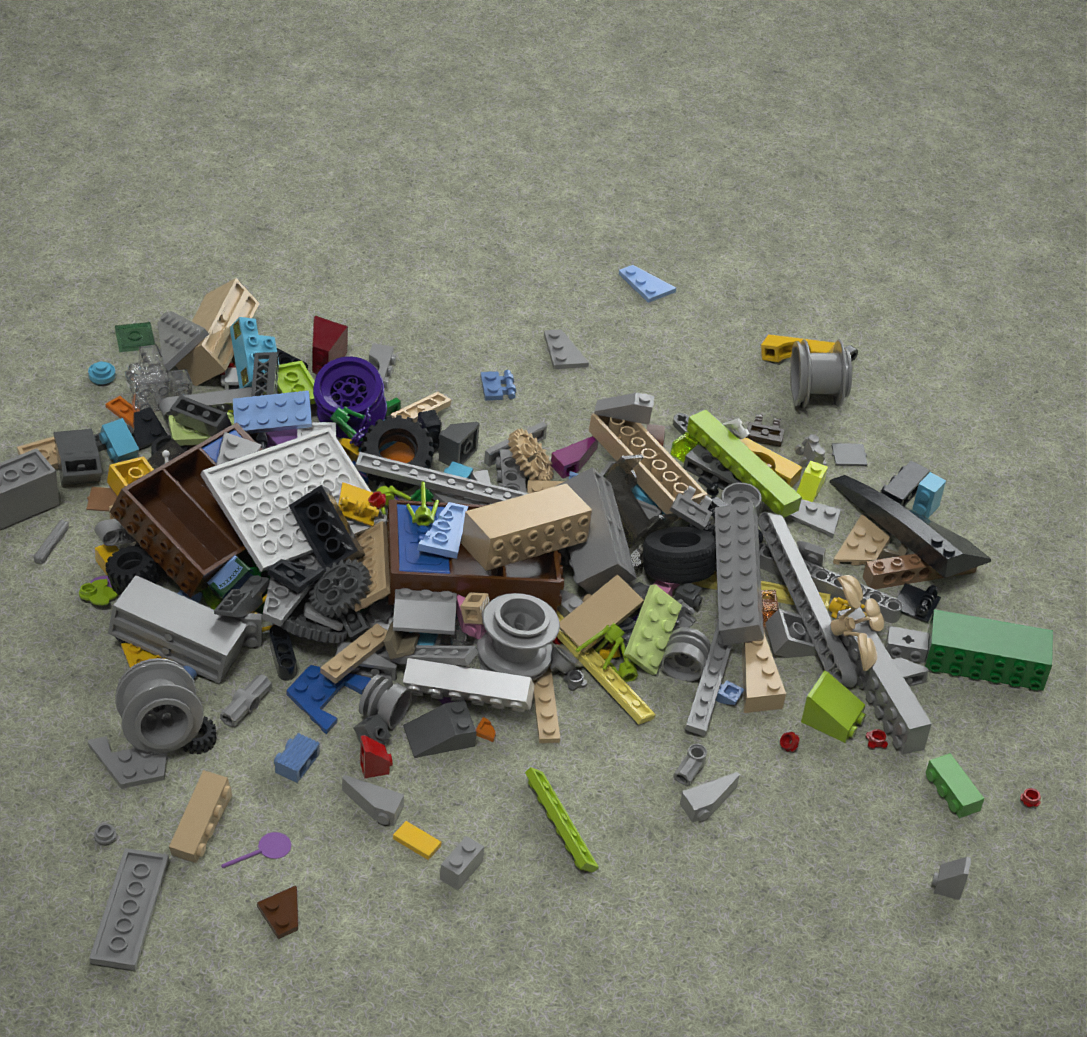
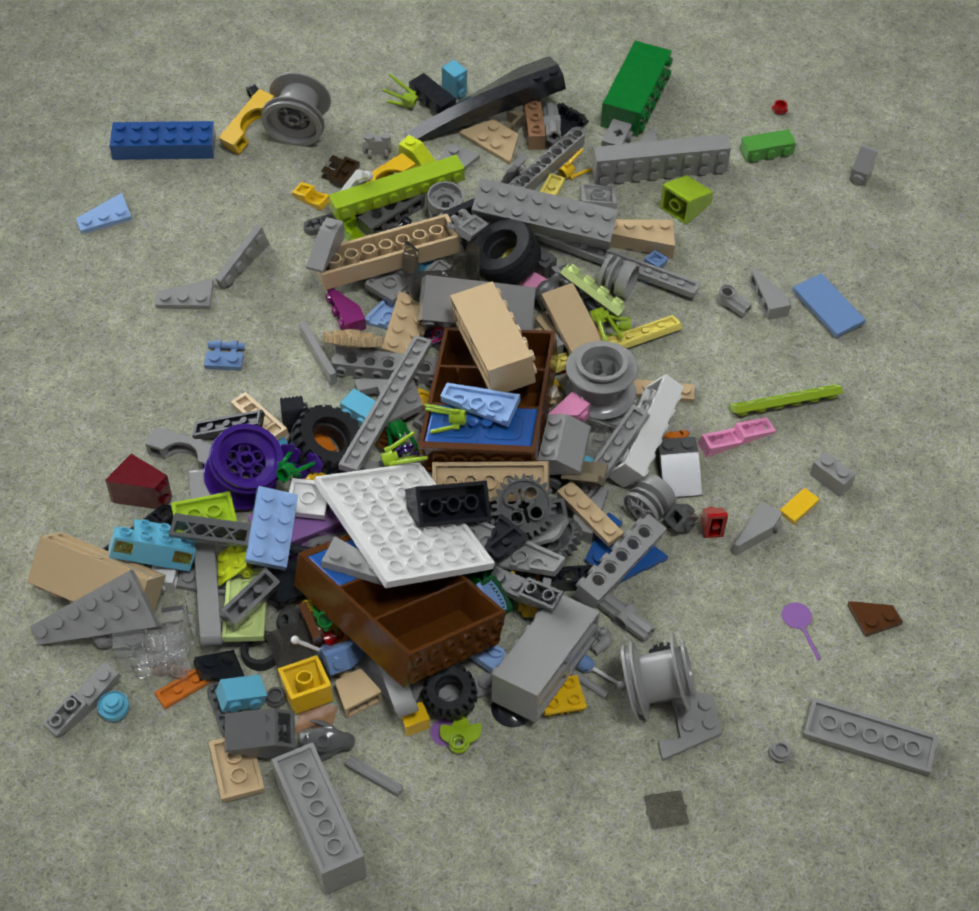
camera: 75 degrees left, 10 degrees up
(34, 750) = (666, 810): none -> clear smoke piece
(80, 500) = (326, 739): none -> dark grey animal
(99, 350) = (80, 704): none -> light grey slope
(133, 336) = (55, 670): clear green tile -> none
(201, 816) = (774, 664): tan wedge -> none
(222, 688) = (604, 640): none -> light grey arm
(289, 680) = (640, 539): none -> light grey brick
(296, 757) = (702, 582): medium blue brick -> none
(355, 504) = (409, 476): yellow hinge -> none
(377, 499) = (406, 459): red plate -> none
(407, 392) = (213, 427): none -> black tile
(458, 442) = (318, 389): dark grey slope -> none
(473, 607) = (581, 396): tan brick -> none
(499, 780) = (741, 434): none -> bright pink slope
(622, 375) = (246, 253): none -> light grey wing
(715, 855) = (828, 305): none -> medium blue tile
(726, 411) = (309, 195): none -> yellow slope
(752, 300) = (162, 140): none -> blue brick
(786, 739) = (717, 233): red plate -> none
(807, 598) = (576, 180): light grey beam -> none
(845, 625) = (619, 157): tan plant -> none
(849, 454) = (379, 123): piece -> none
(880, 736) = (713, 181): red plate -> none
(888, 465) = (409, 99): none -> lime plant
(899, 581) = (552, 123): none -> light grey piece

